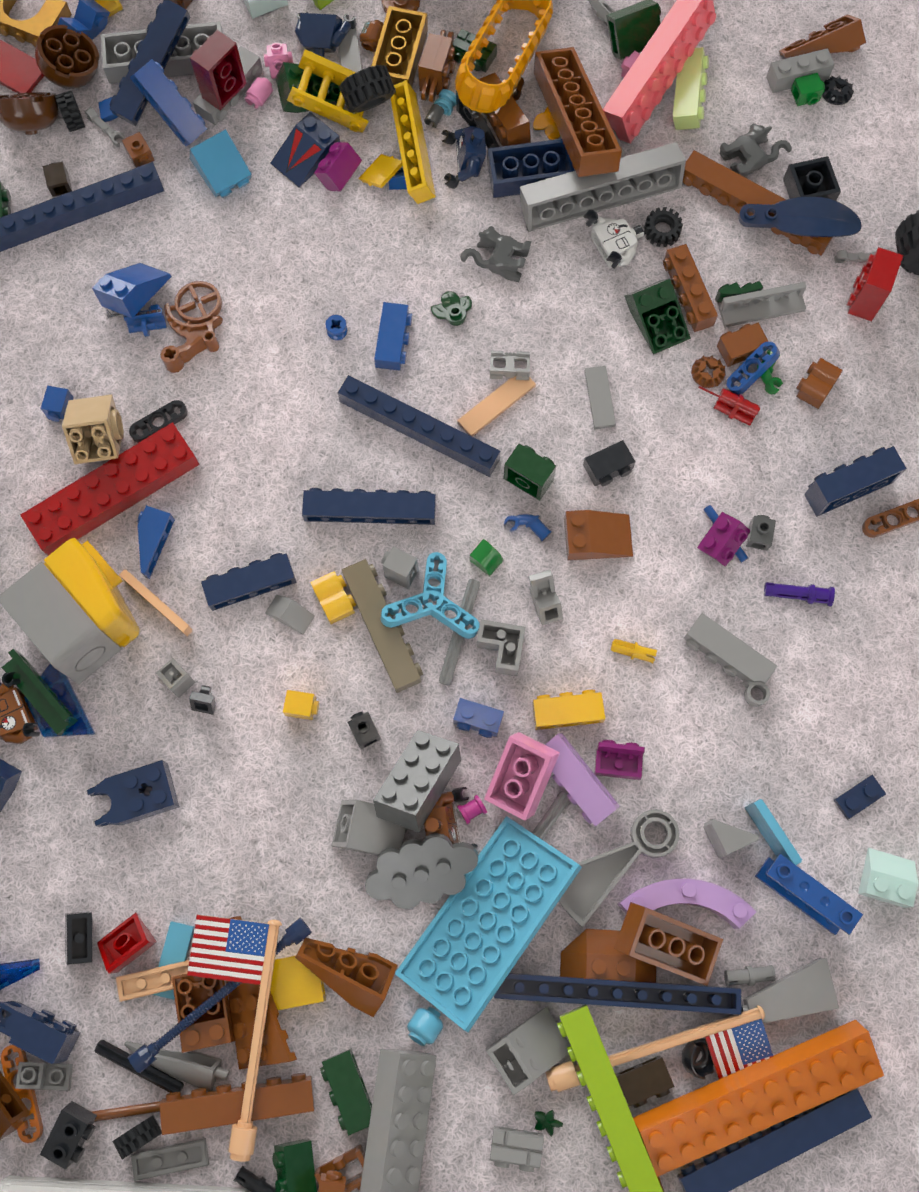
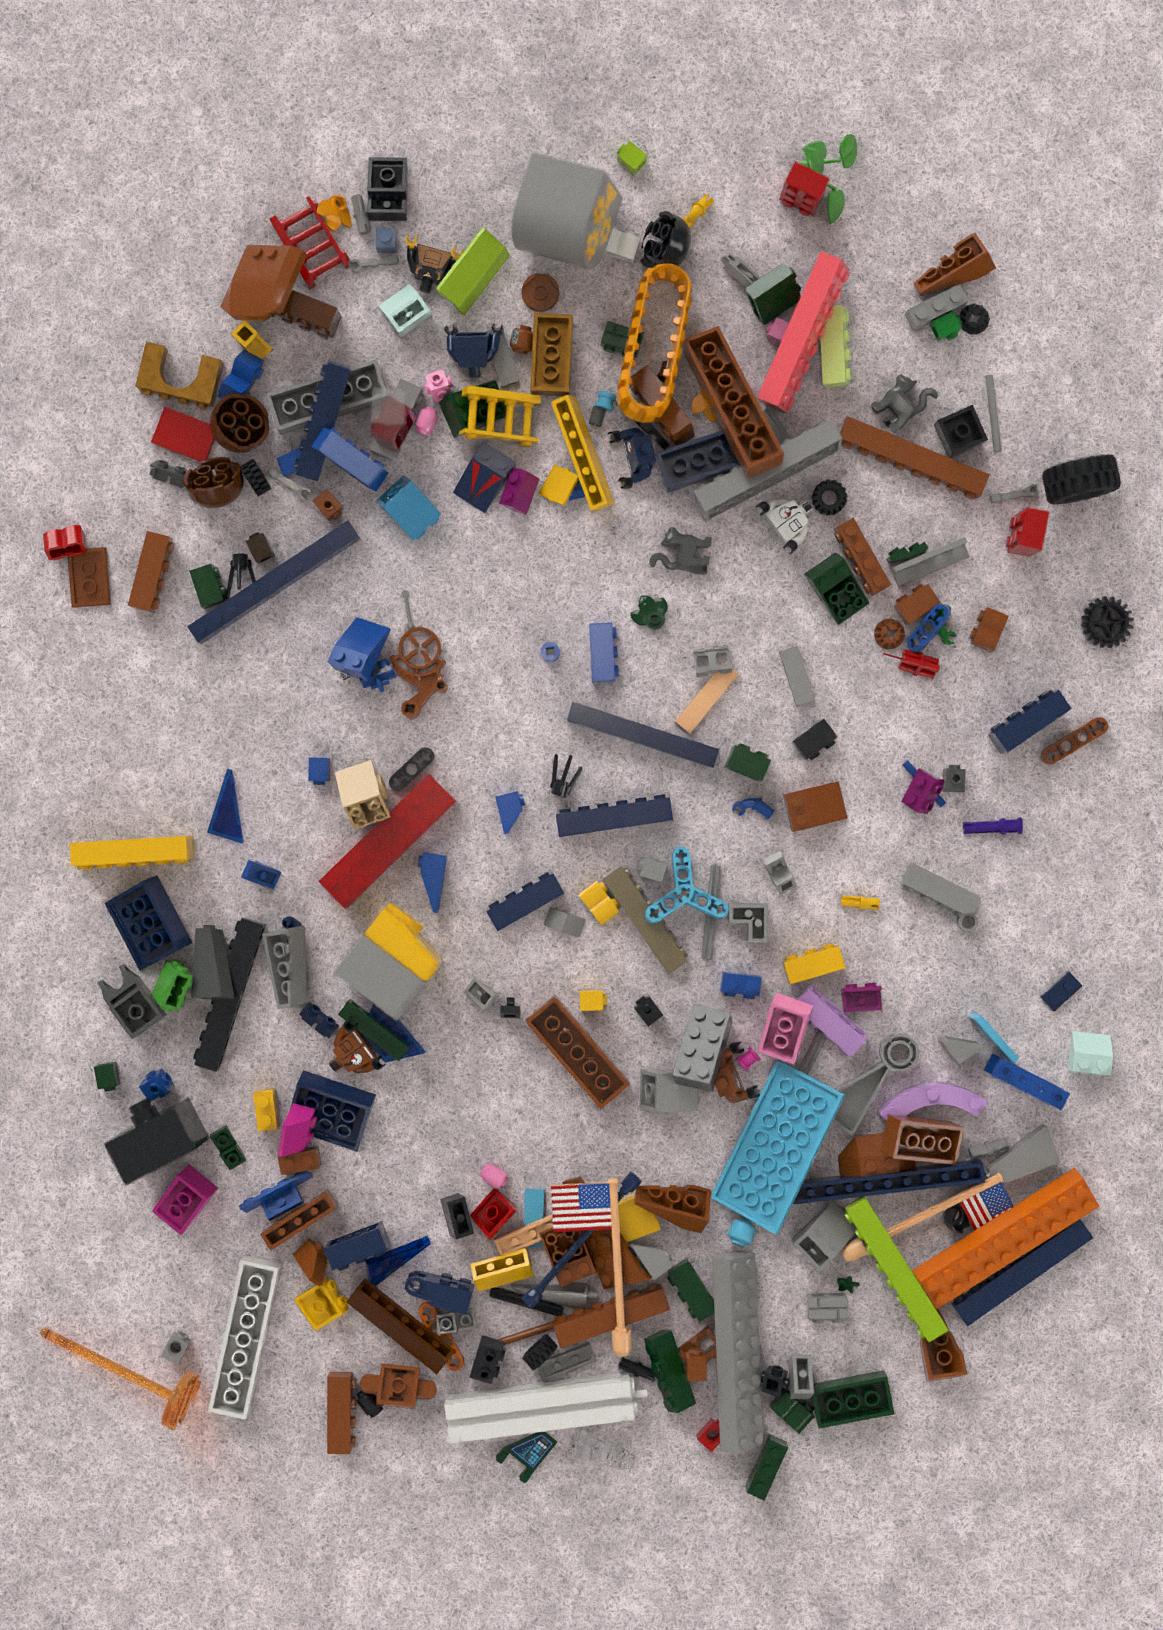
camera: 15 degrees left, 15 degrees up
(32, 191) = (239, 563): none -> black plant
(116, 1018) = (502, 1270): none -> yellow brick
(129, 798) = (470, 1102): dark blue brick -> none
(136, 896) = (494, 1176): none -> bright pink brick
(156, 602) = (444, 930): light nougat tile -> none
(197, 249) = (405, 594): none -> light grey hinge
(213, 37) = (388, 406): none -> clear piece
(254, 479) = (509, 809): none -> blue slope
(270, 762) = (577, 1052): none -> dark orange brick
(304, 1036) = (652, 1259): none -> light grey slope
(316, 465) = (560, 787): none -> black plant
(367, 88) = (535, 416): black tyre -> none
(421, 871) = (718, 1117): plate -> none
(436, 65) = (590, 372): dark orange brick -> none
(486, 557) = (722, 844): green brick -> none
(645, 1081) = (917, 1242): dark brown brick -> none
(804, 217) = (959, 471): dark blue plant -> none
(847, 175) = (993, 413): none -> light grey bar

